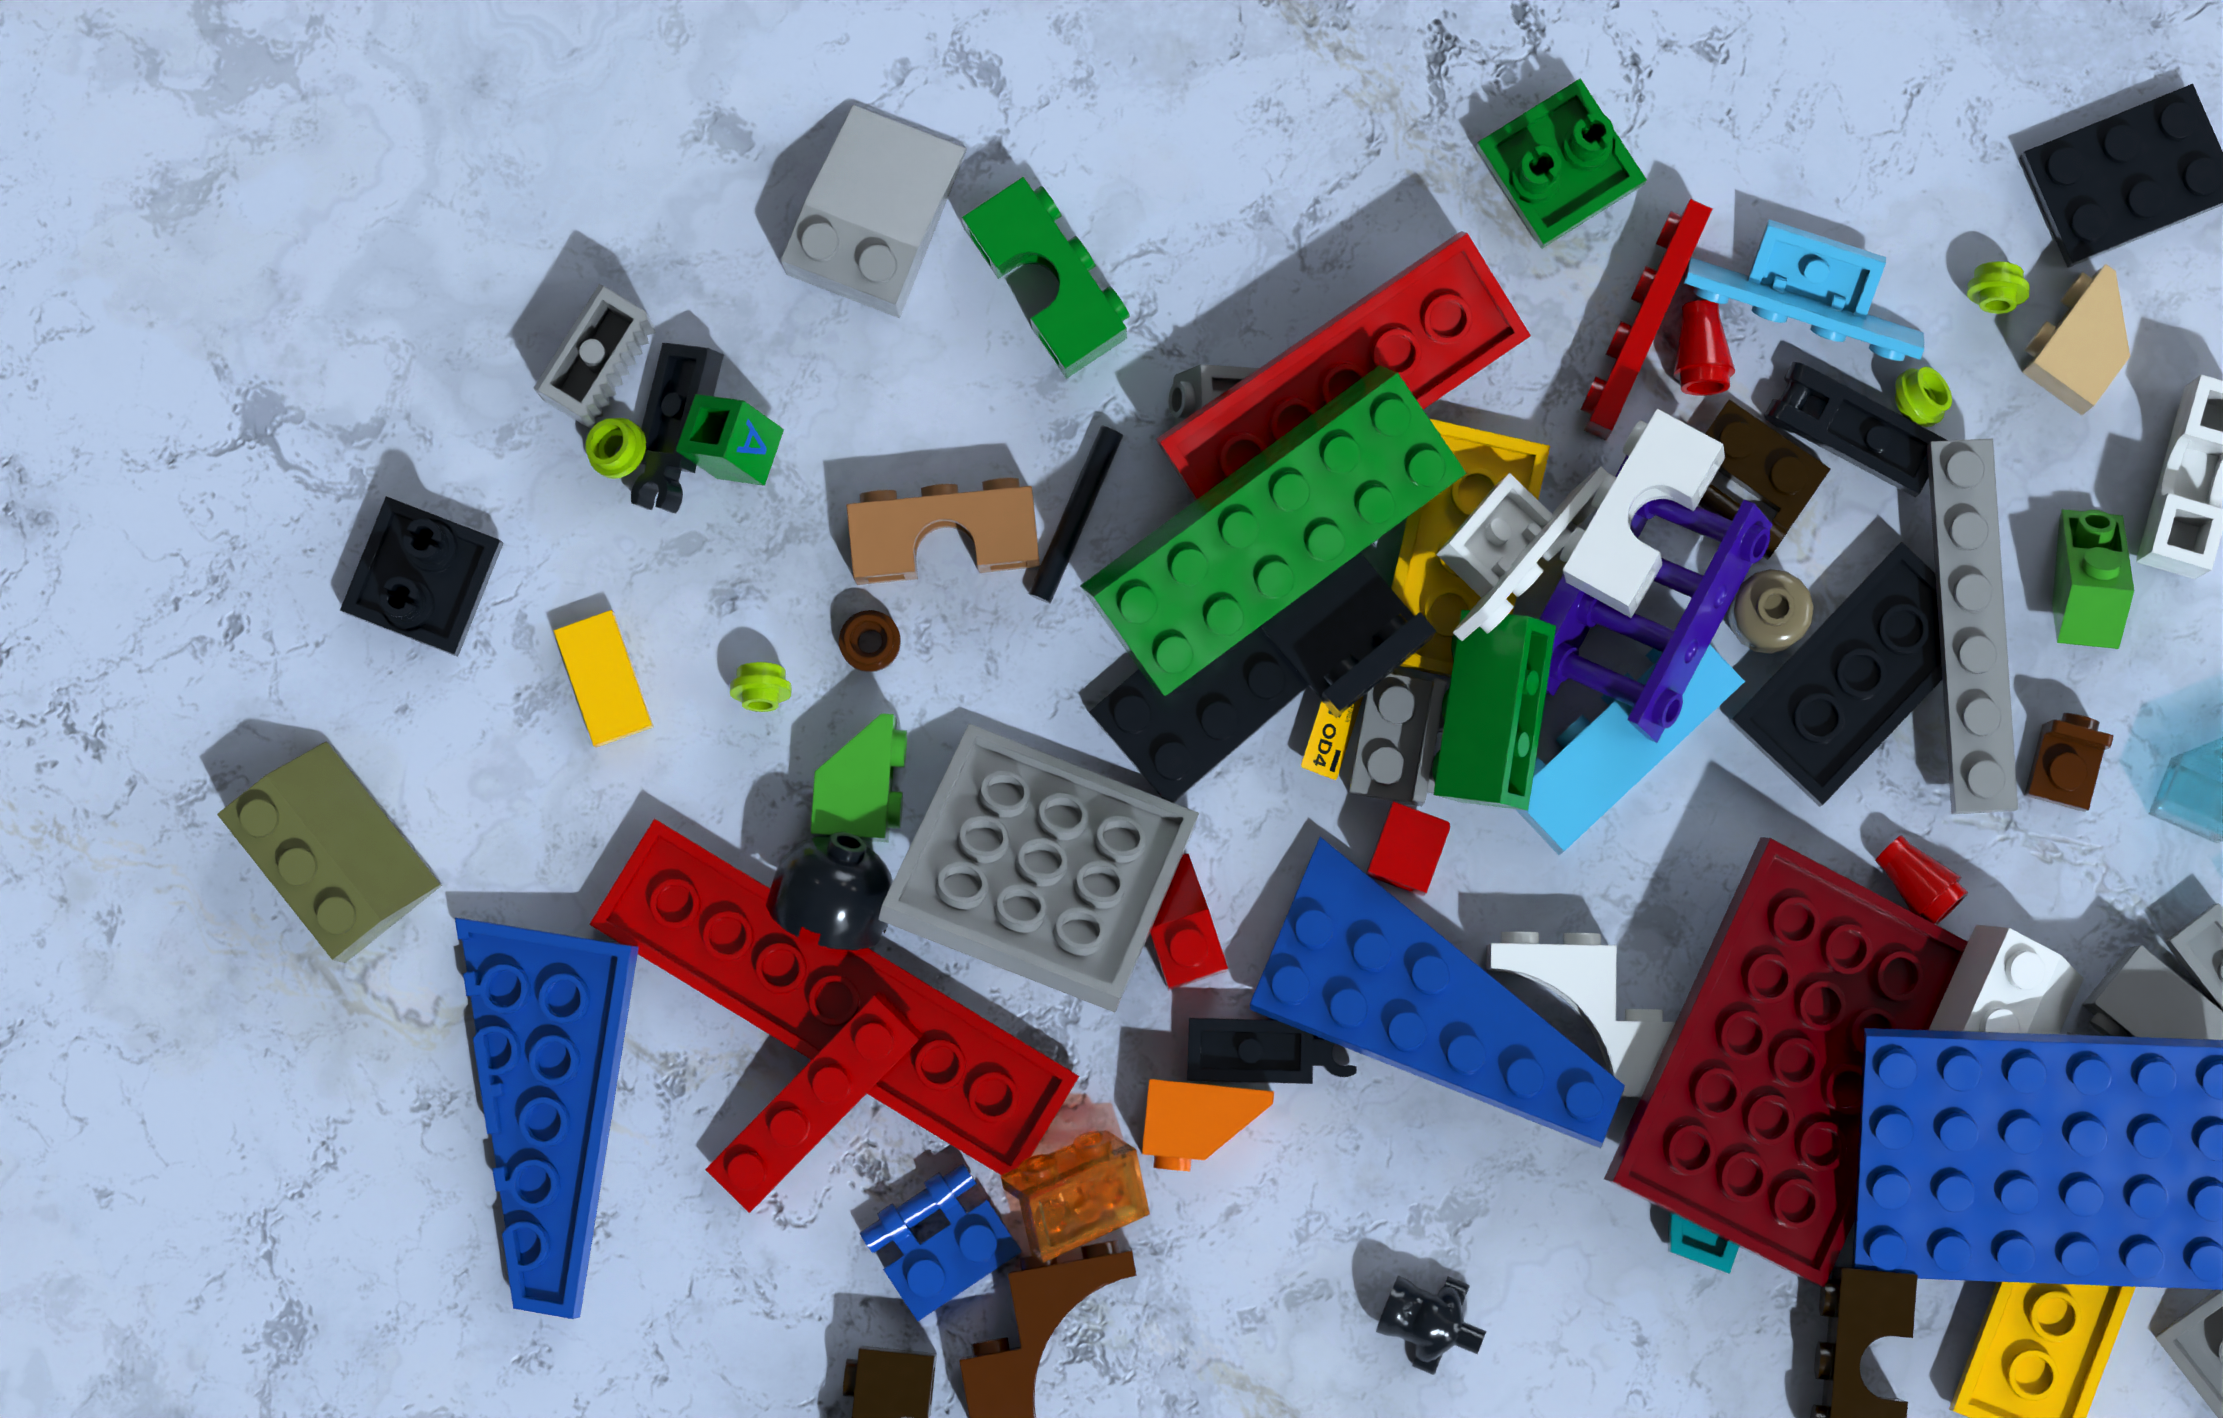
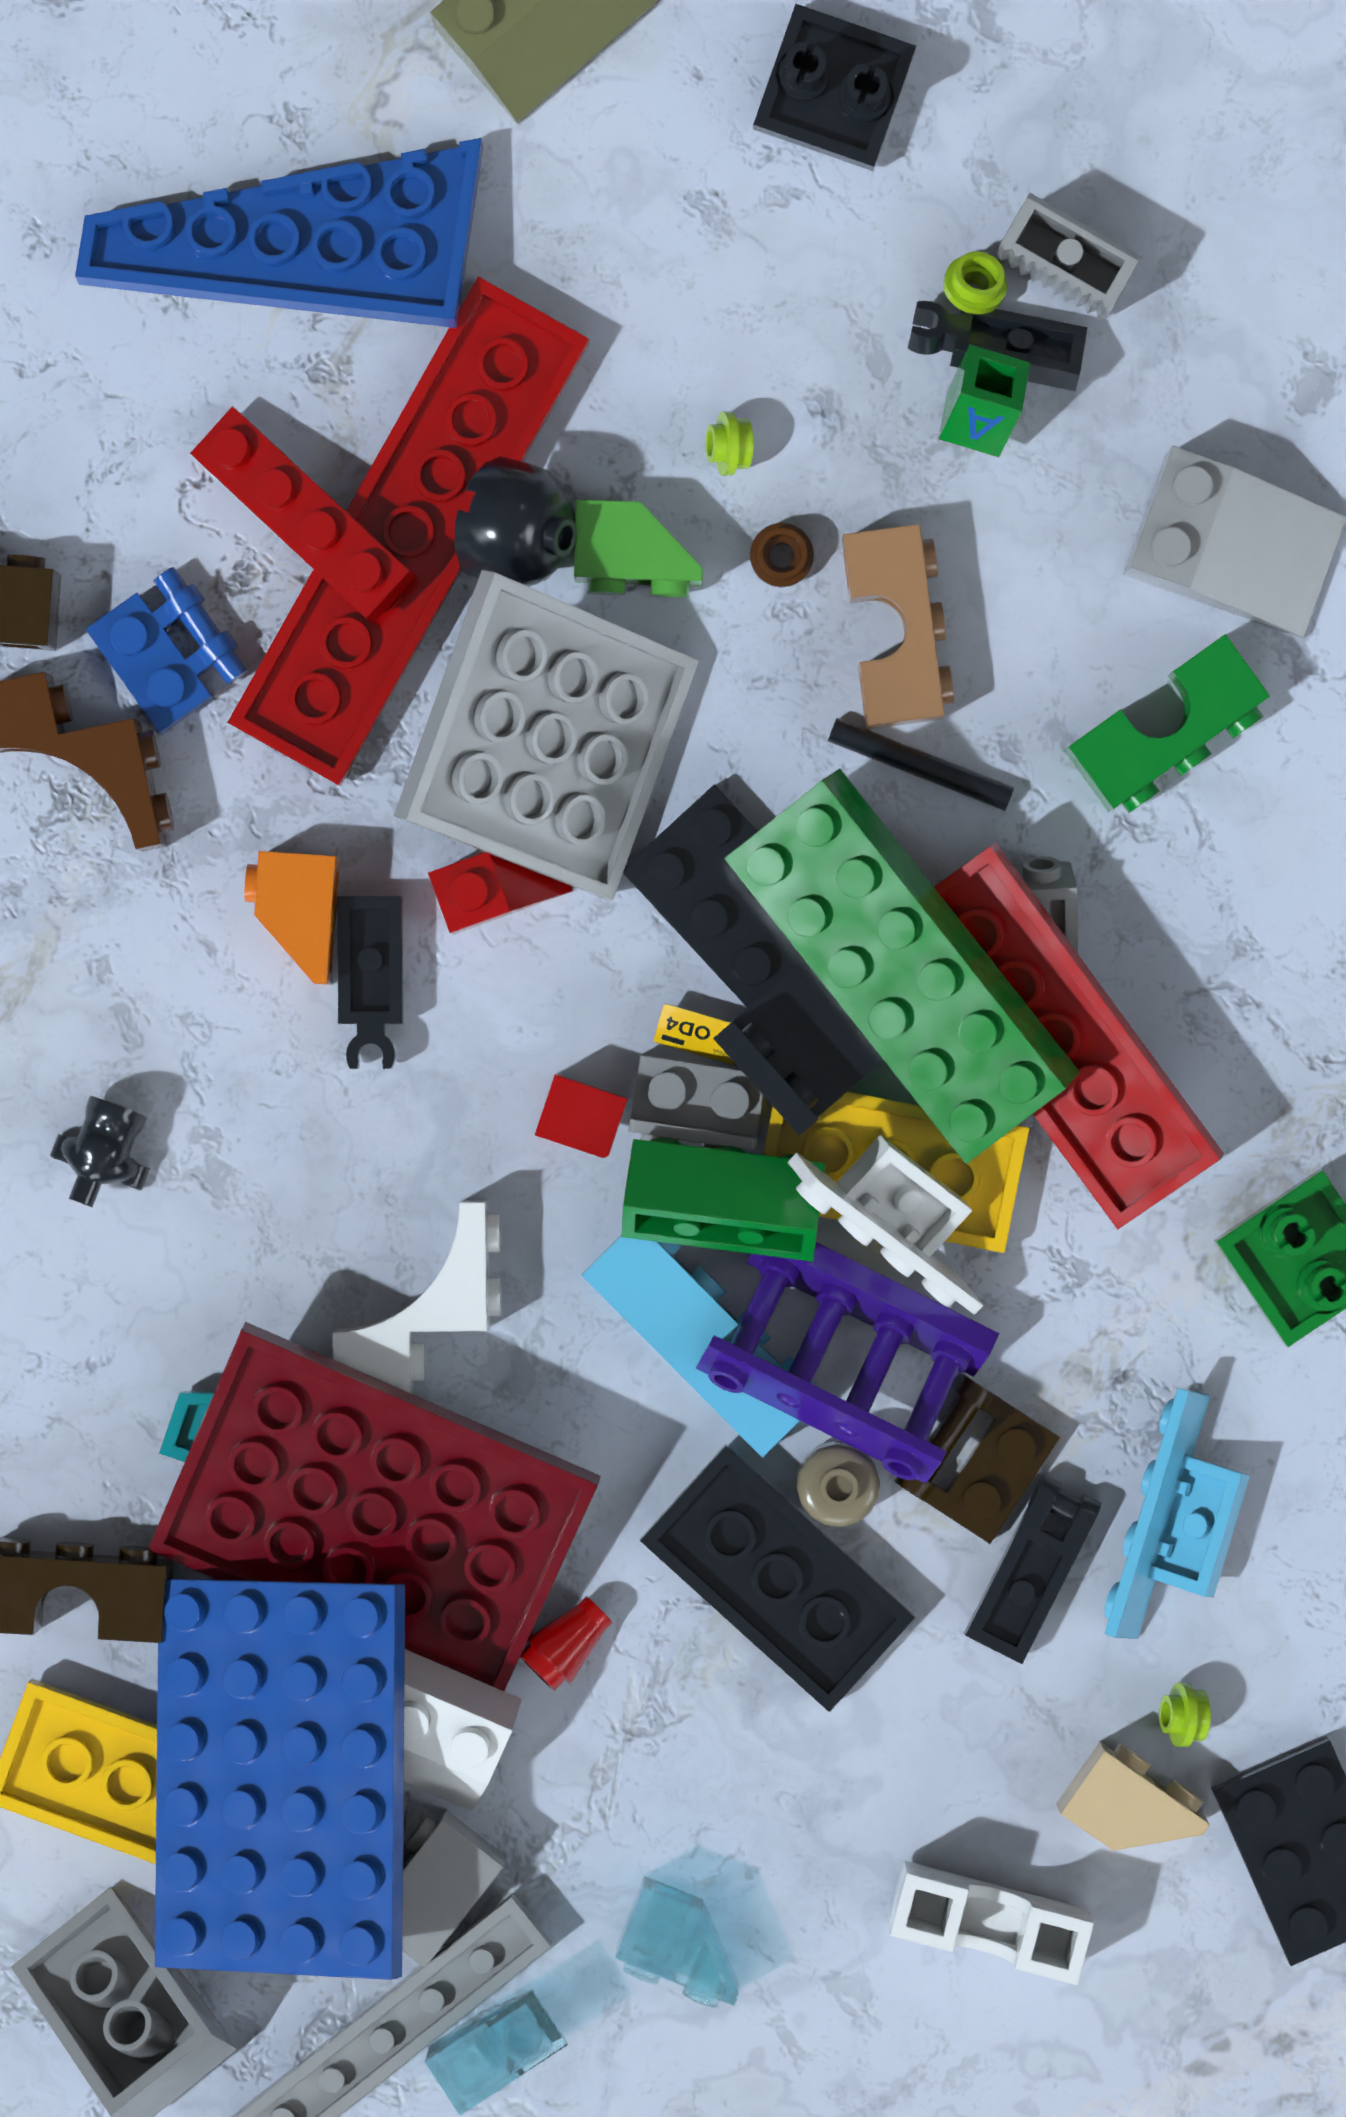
camera: 80 degrees right, 5 degrees up
(603, 678) = (734, 281): yellow tile -> none
(1078, 1193) = (219, 787): clear orange bracket -> none
(1397, 991) = (434, 1107): blue wing -> none
(1654, 294) = (1167, 1358): red plate -> none
(1663, 463) = (983, 1366): white arch -> none
(1703, 351) = (1107, 1409): red cone -> none
(1922, 396) = (1068, 1638): lime plate -> none
(1972, 626) = (828, 1691): light grey plate -> none
(2068, 761) = (693, 1792): reddish brown bracket -> none
(2091, 579) = (882, 1814): bright green slope -> none

